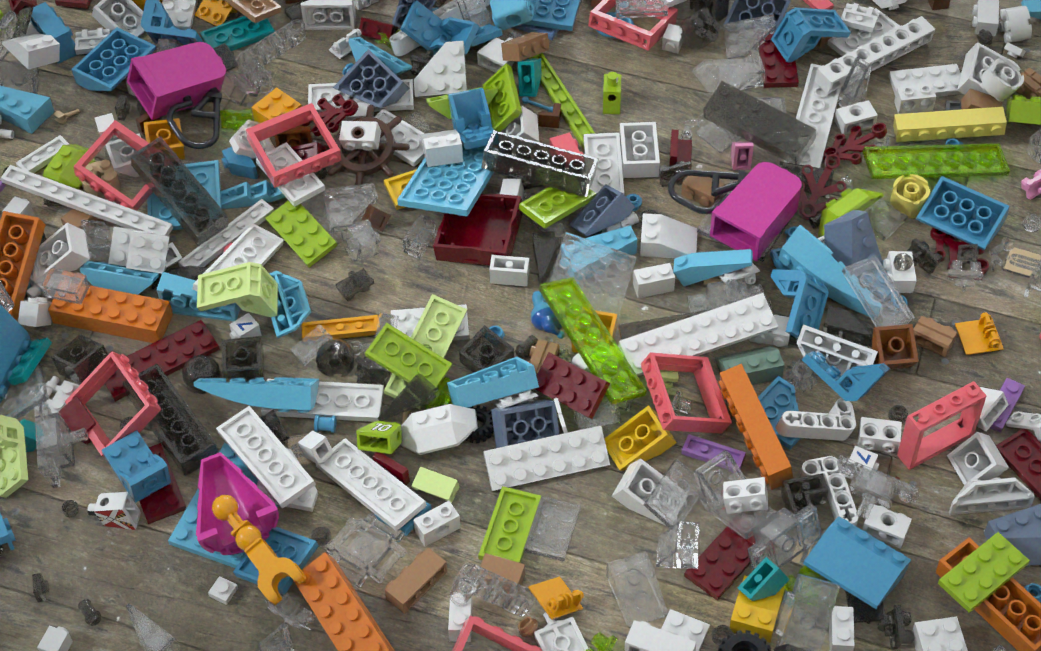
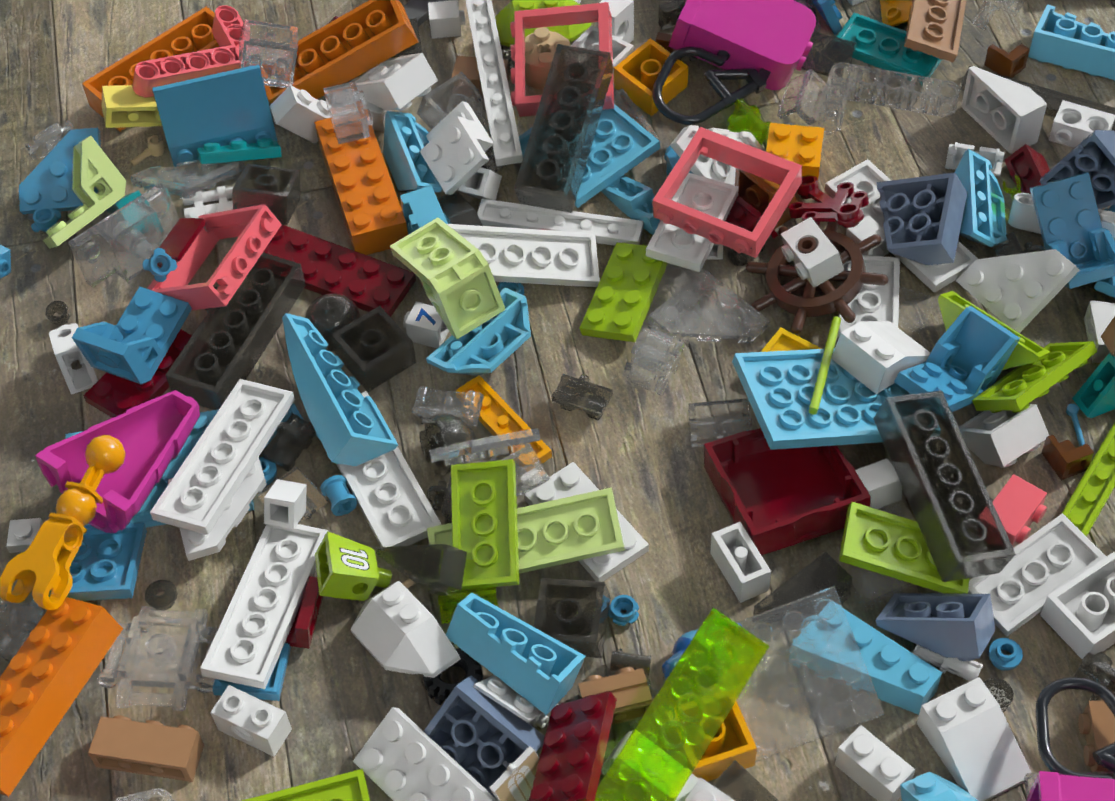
camera: 60 degrees right, 0 degrees up
(94, 432) = (168, 264): none -> dark azure plate
(363, 333) = (477, 448): none -> clear plate
(377, 217) = (712, 356): reddish brown panel -> none
(431, 170) = (824, 366): none -> lime axle
(436, 484) = (316, 683): yellowish green hinge -> none

